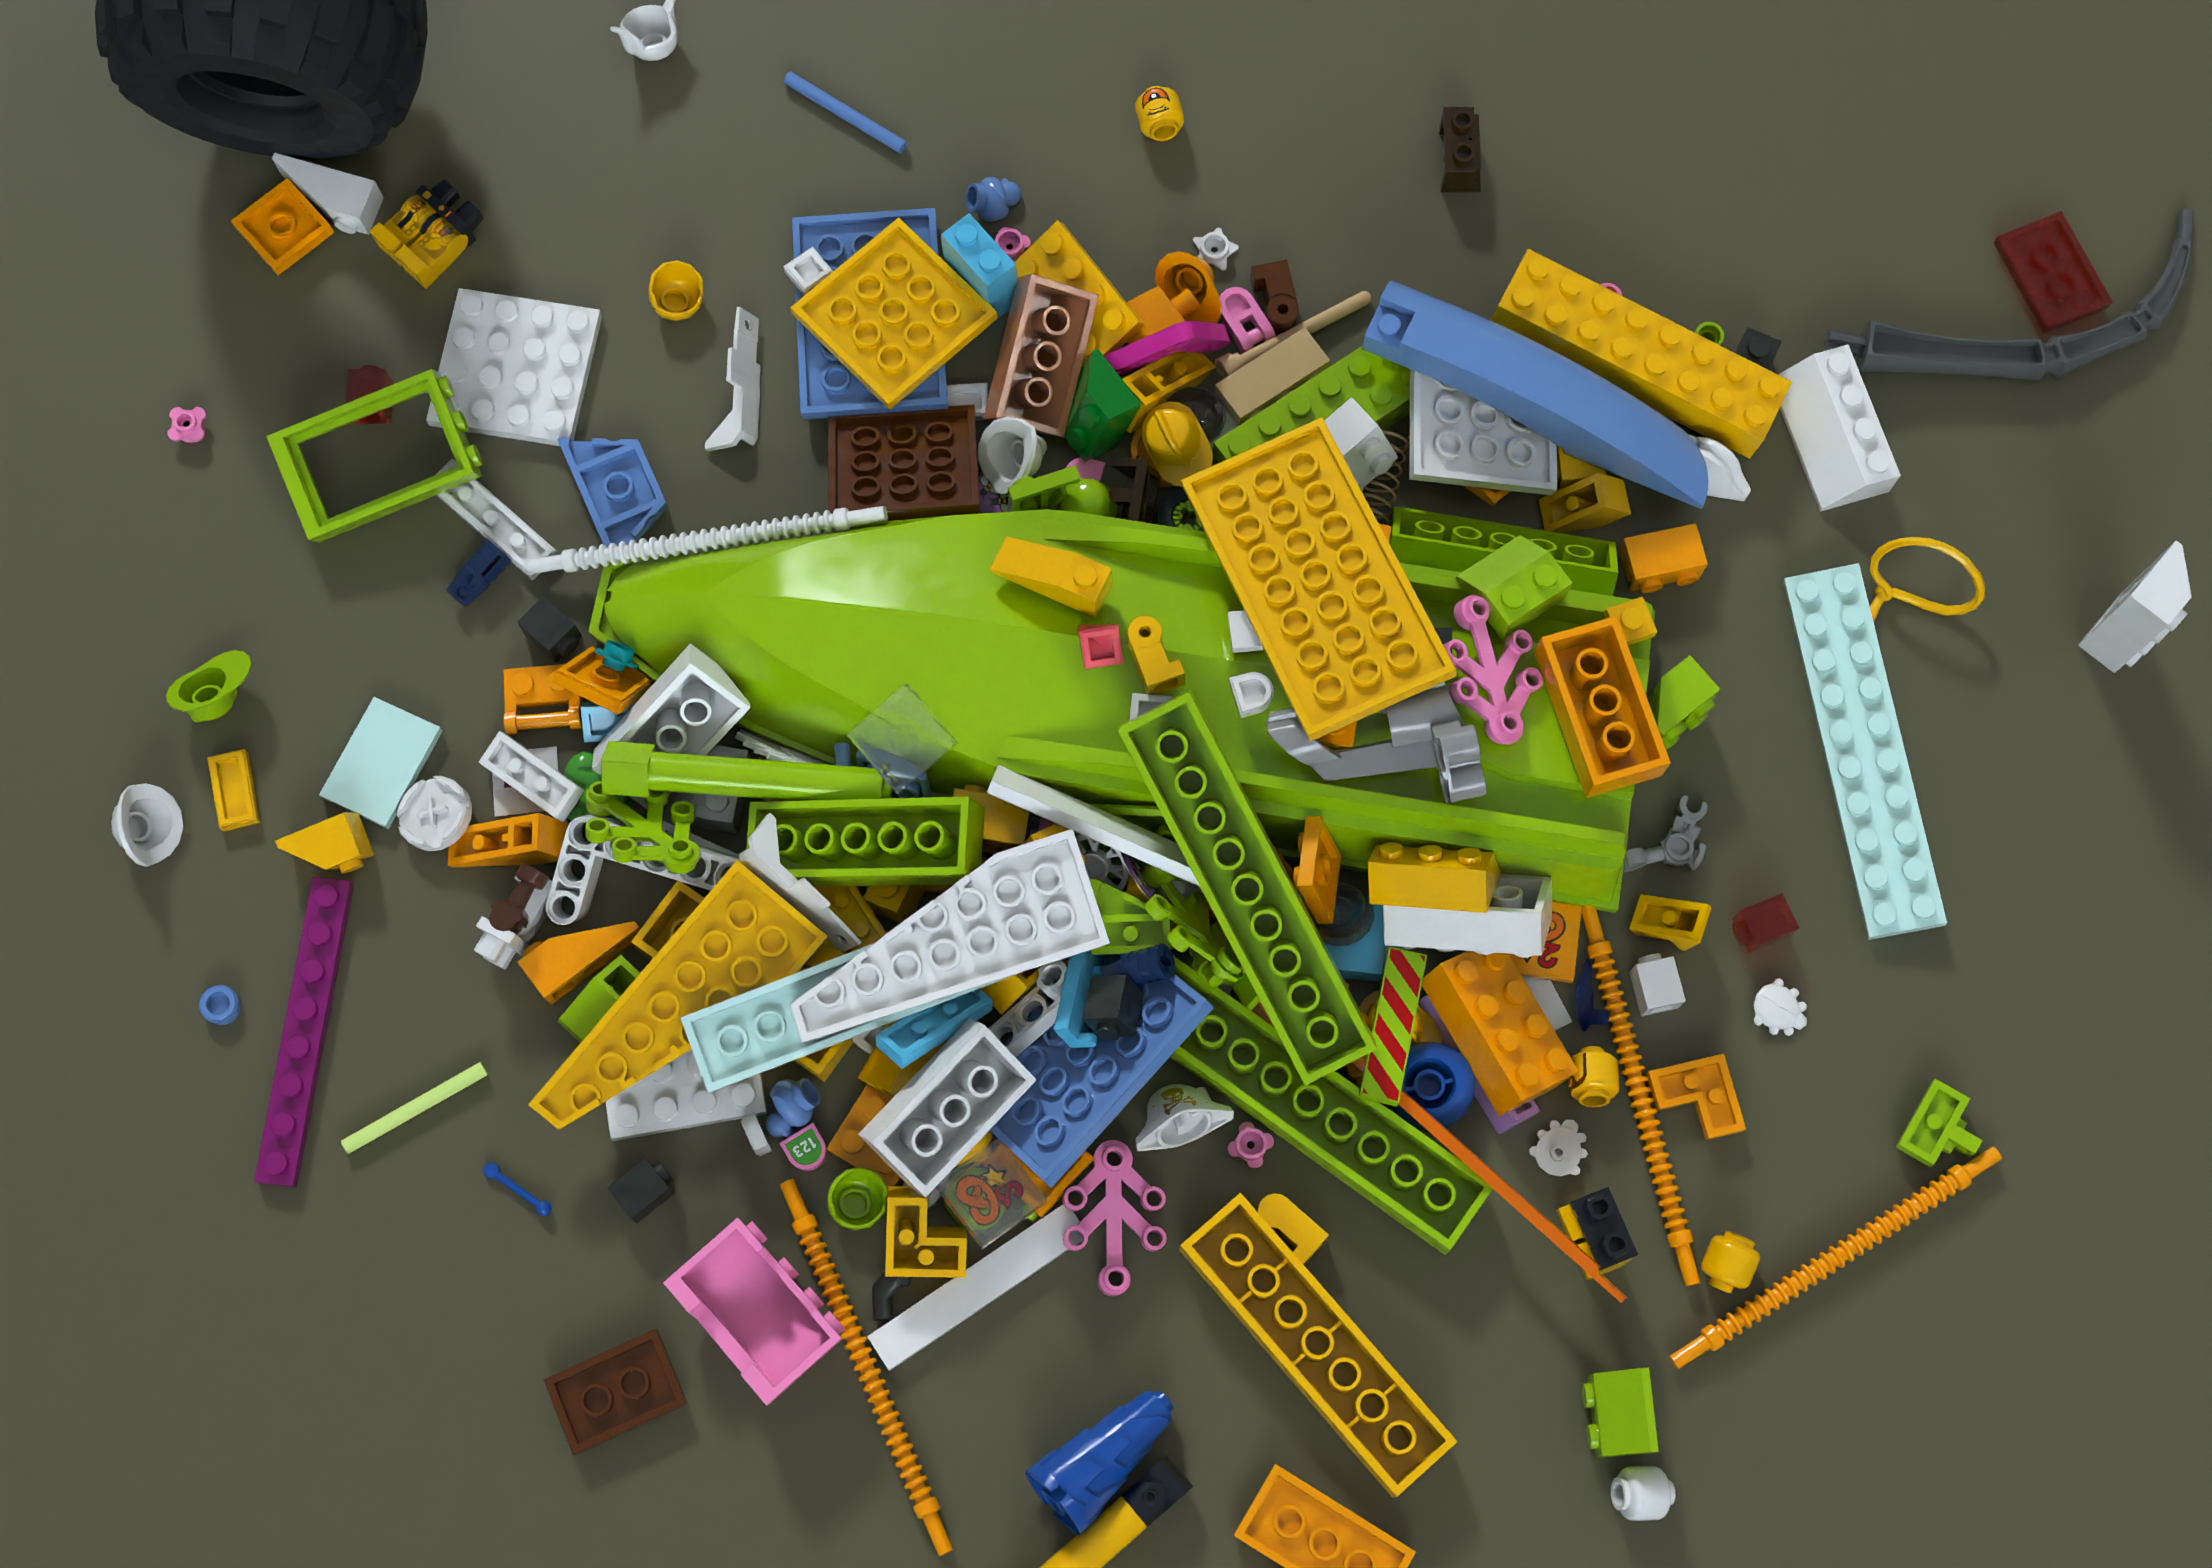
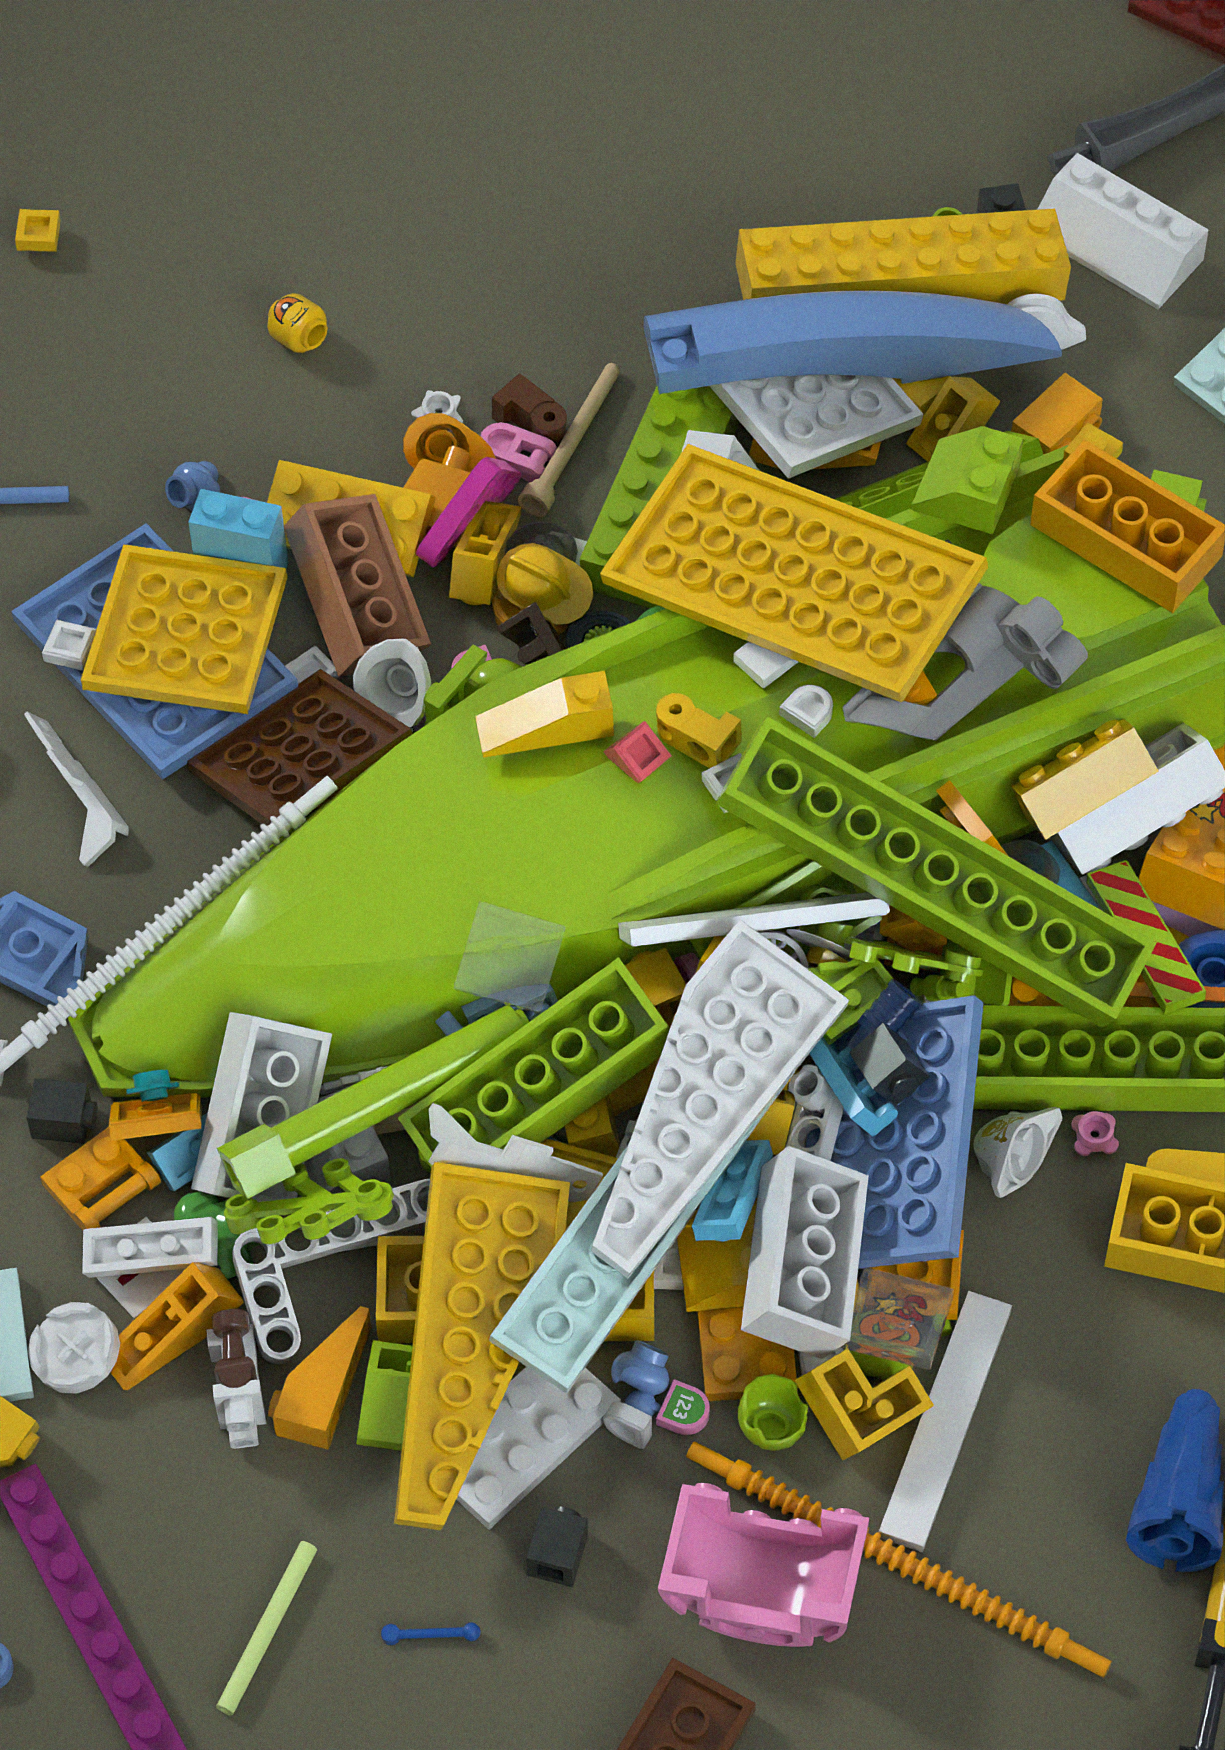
camera: 35 degrees left, 15 degrees down
(882, 1294) = (860, 1480): pearl dark grey arm -> none
(1100, 409) = (448, 592): green slope -> none
(1113, 1210) = (1021, 1269): bright pink plant -> none
(1271, 376) = (585, 478): tan brick -> none
(1461, 150) = (608, 195): dark brown window -> none
(1490, 674) = (1006, 561): bright pink plant -> none

